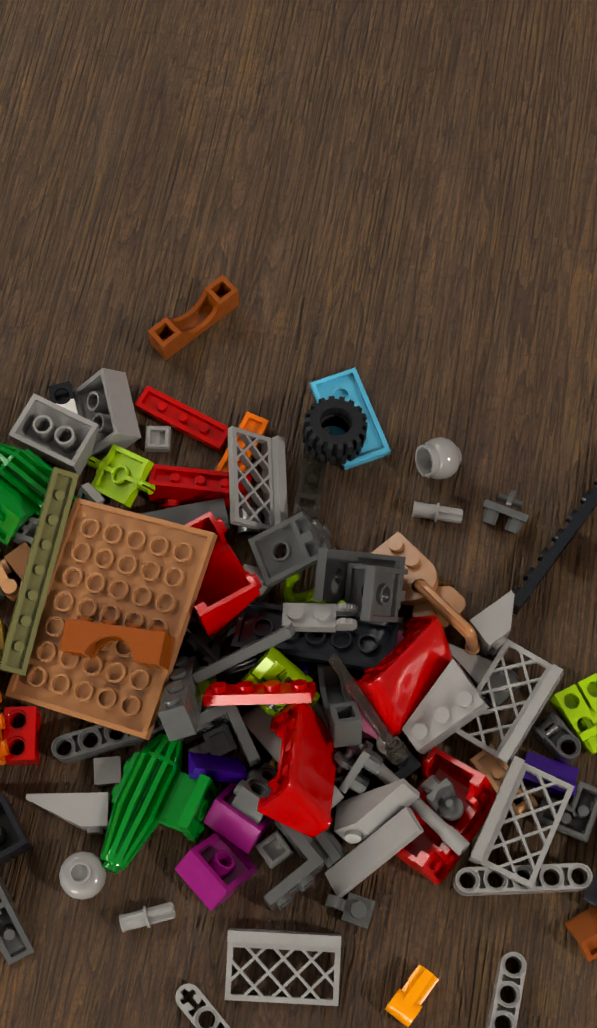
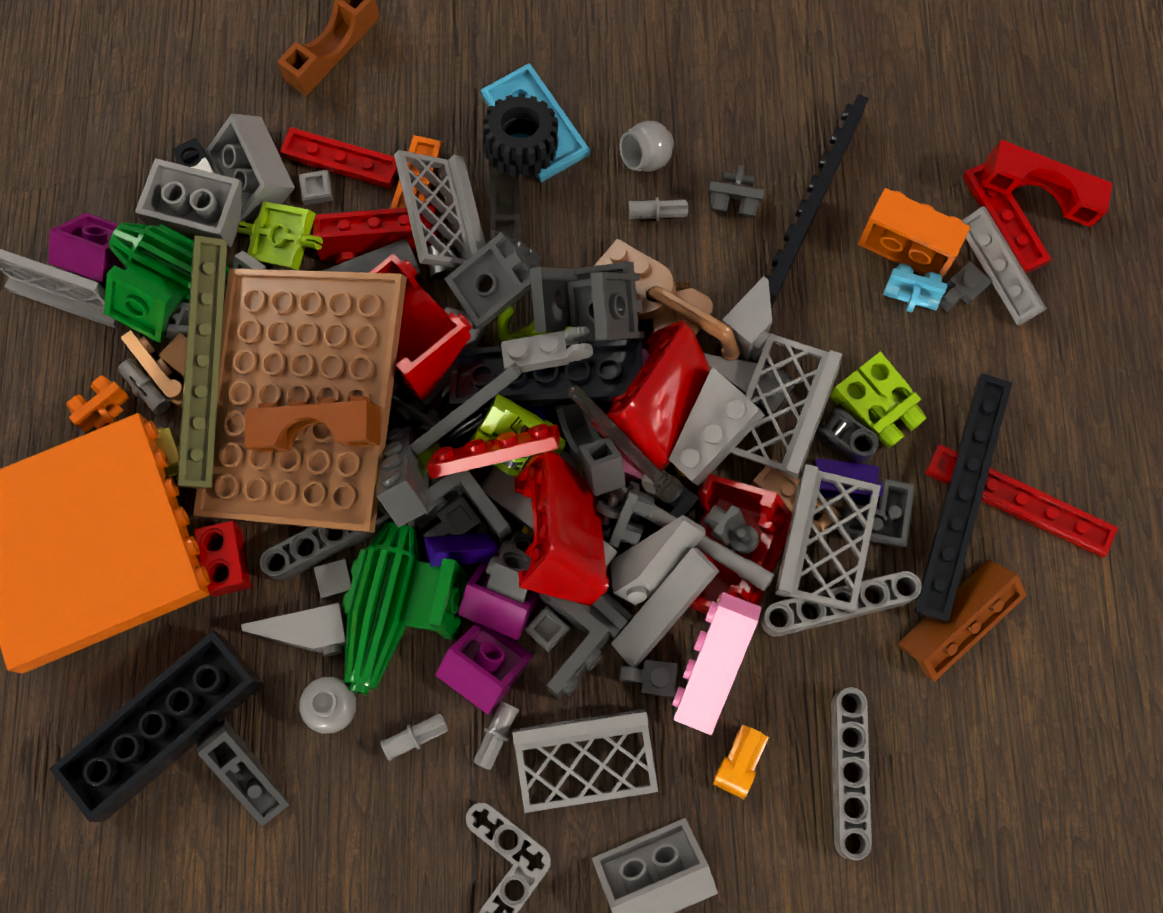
camera: 10 degrees left, 5 degrees up
(213, 930) = (495, 735): none -> light grey axle
(407, 907) = (717, 663): none -> brick

